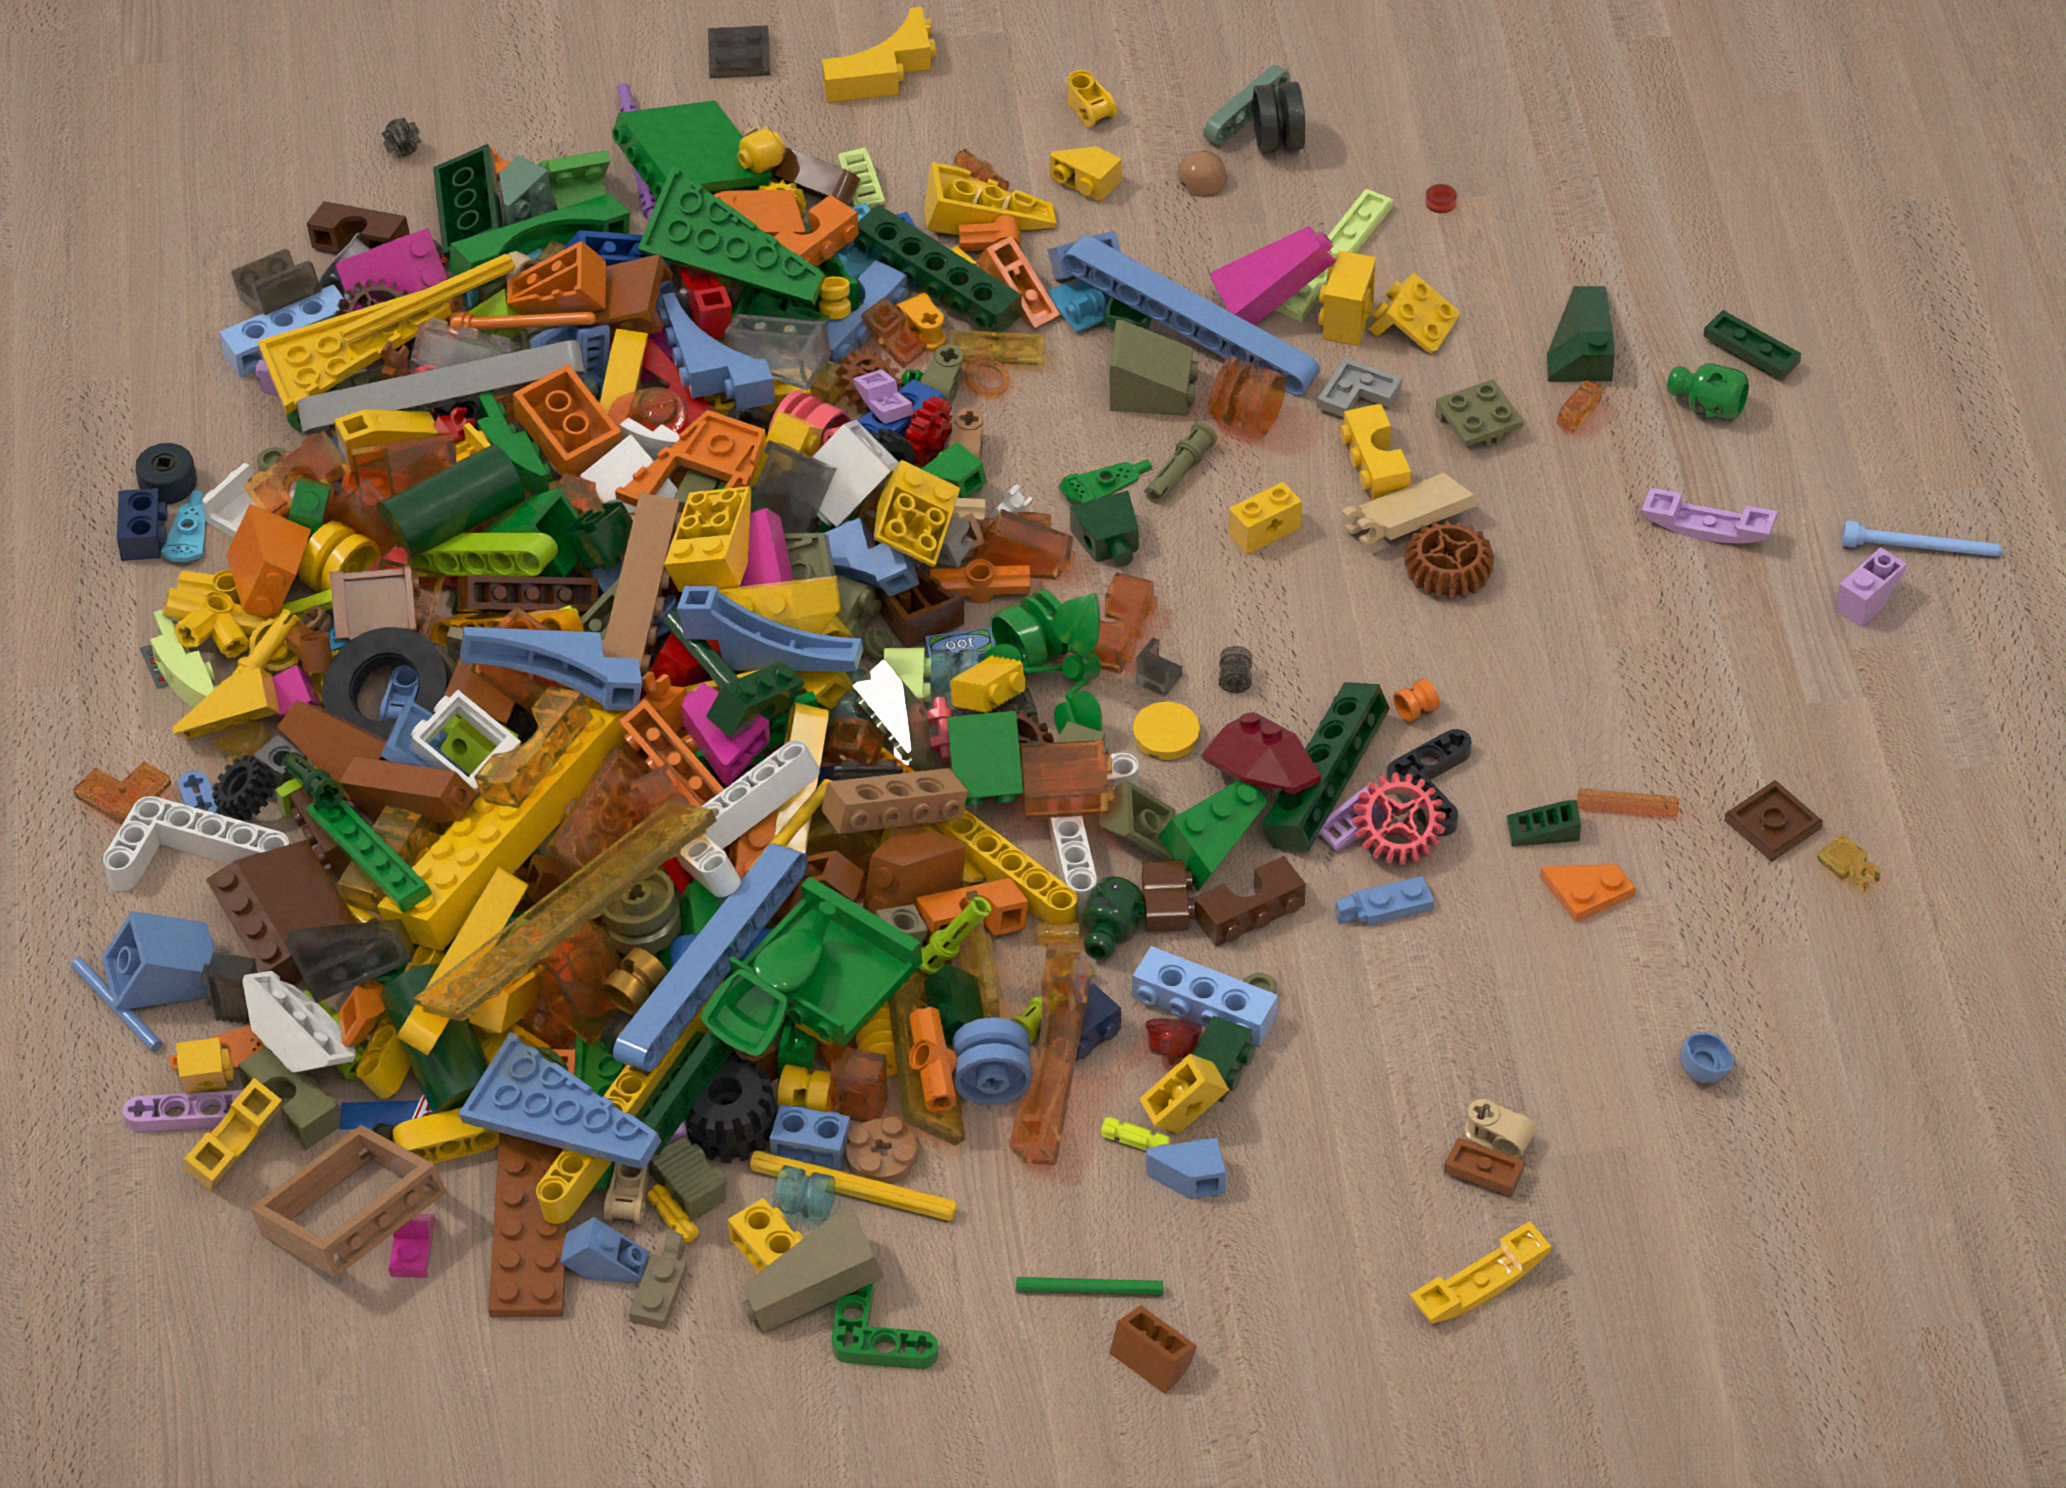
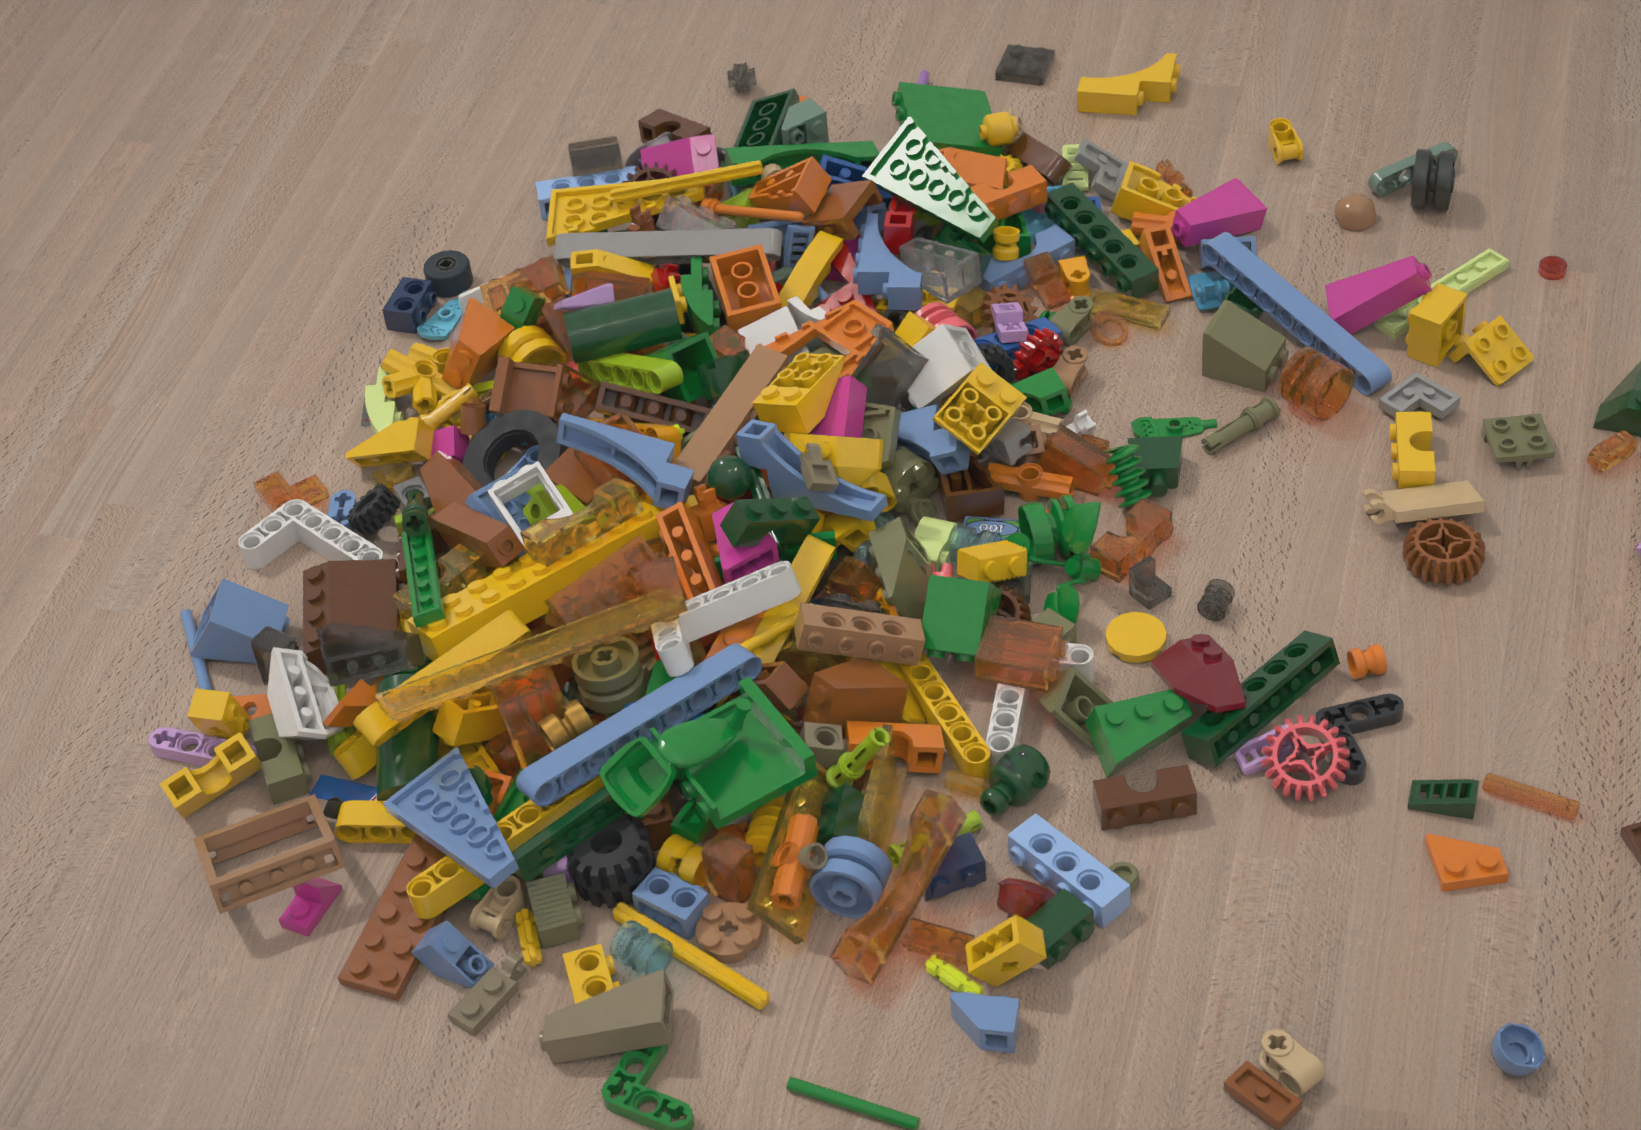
camera: 25 degrees right, 5 degrees down
(403, 475) = (589, 298): none -> lavender slope
(576, 177) = (852, 122): bright green piece -> none
(650, 408) = (821, 292): clear orange piece -> none
(676, 656) = (729, 477): none -> dark green hair
(781, 630) = (818, 474): none -> dark tan plate
(899, 171) = (1107, 168): none -> light grey plate
(956, 1049) = (816, 860): none -> dark tan hinge
(1058, 209) = (1224, 209): none -> dark pink slope
(1087, 170) = (1267, 189): yellow slope -> none
(1091, 549) = (1128, 474): none -> green piece
(1115, 1101) = (931, 937): none -> clear orange hinge
(1165, 895) = (1072, 774): reddish brown brick -> none
(1265, 517) = (1293, 483): yellow brick -> none
(1386, 902) = (1269, 829): medium blue hinge -> none

